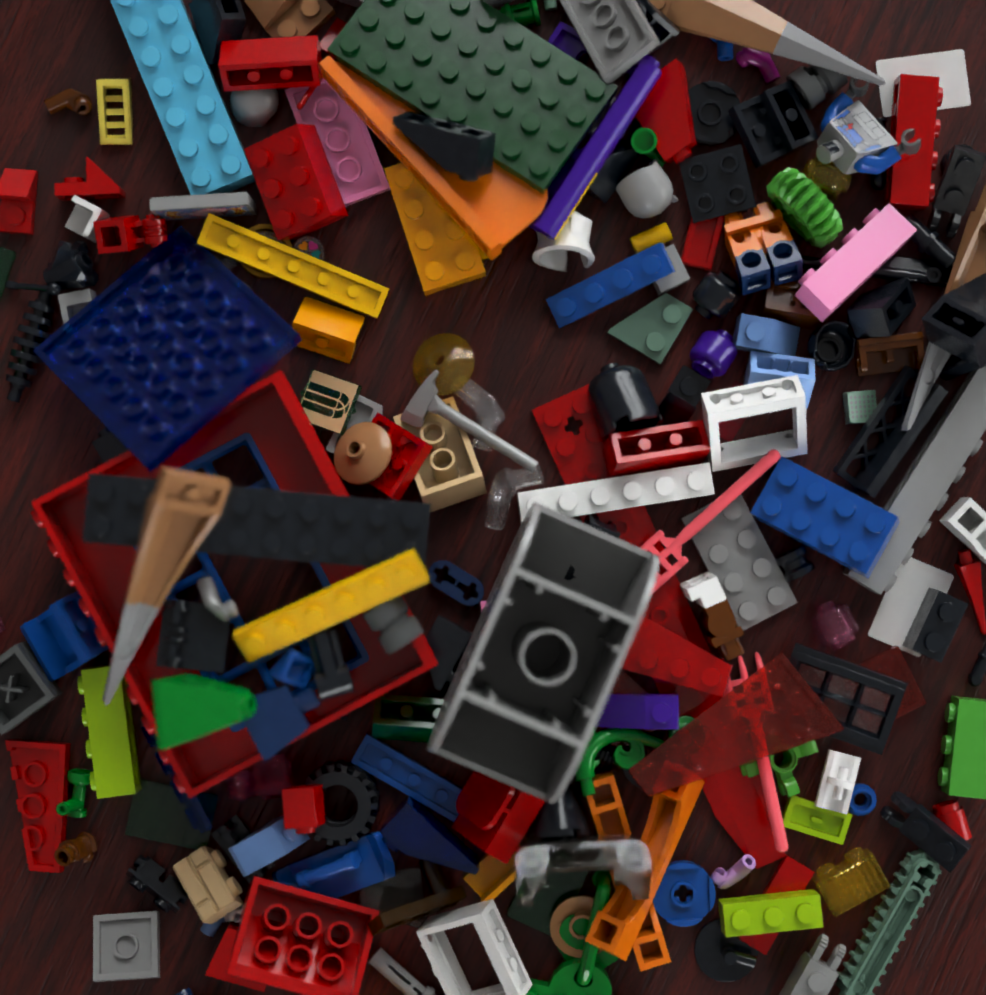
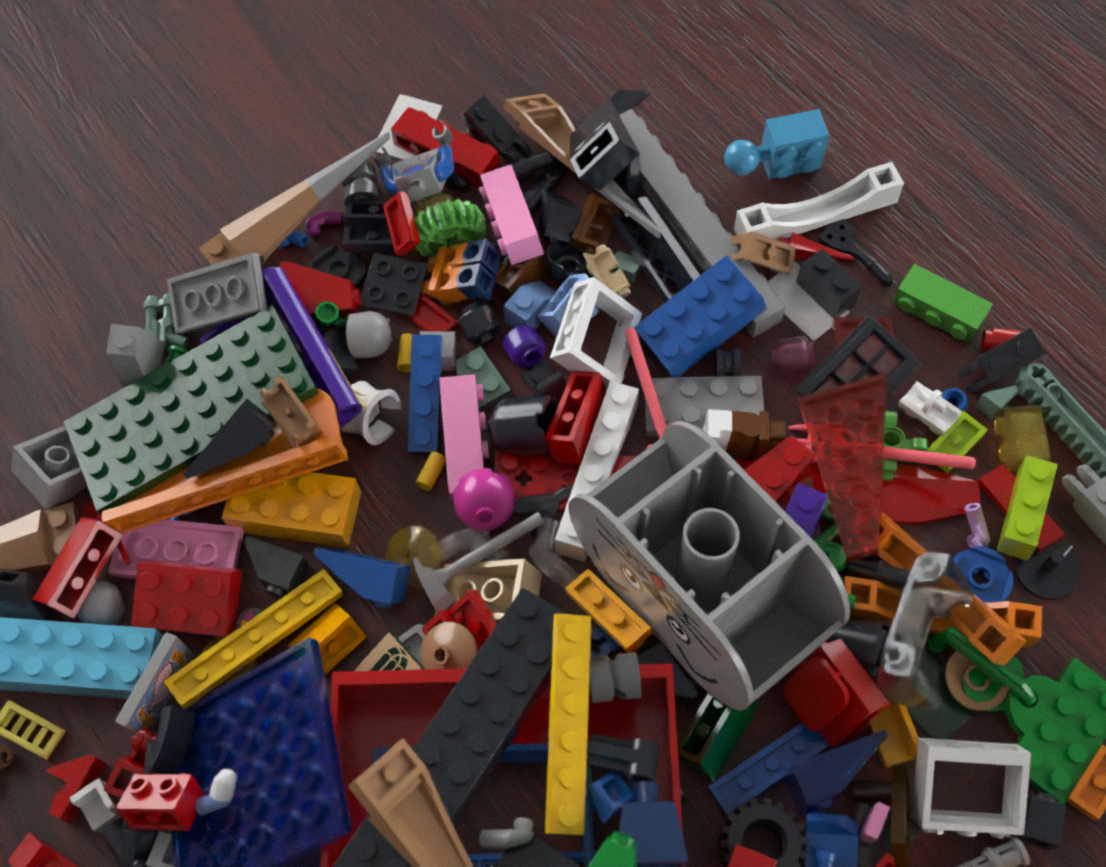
camera: 65 degrees left, 25 degrees down
(107, 282) = (160, 802): none -> red brick
(135, 331) = (220, 793): none -> white arm
(151, 257) = (174, 734): none -> black slope
(367, 243) = (276, 567): none -> pearl dark grey slope
(401, 889) = (874, 823): none -> bright pink tile
(403, 334) = (368, 576): none -> blue slope
(476, 574) = (609, 611): none -> light orange plate
(502, 185) = (290, 413): none -> medium nougat hinge
(524, 405) = (484, 499): none -> dark pink cylinder
(537, 332) = (431, 471): none -> yellow piece
(551, 461) = (545, 504): none -> black piece
(582, 348) = (462, 427): none -> bright pink brick
(635, 807) = (879, 572): none -> black axle
(781, 158) = (401, 223): none -> red tile
(824, 406) = (600, 268): none -> tan hinge
(877, 843) = (993, 402): none -> sand green slope
(934, 547) = (765, 252): none -> medium nougat hinge

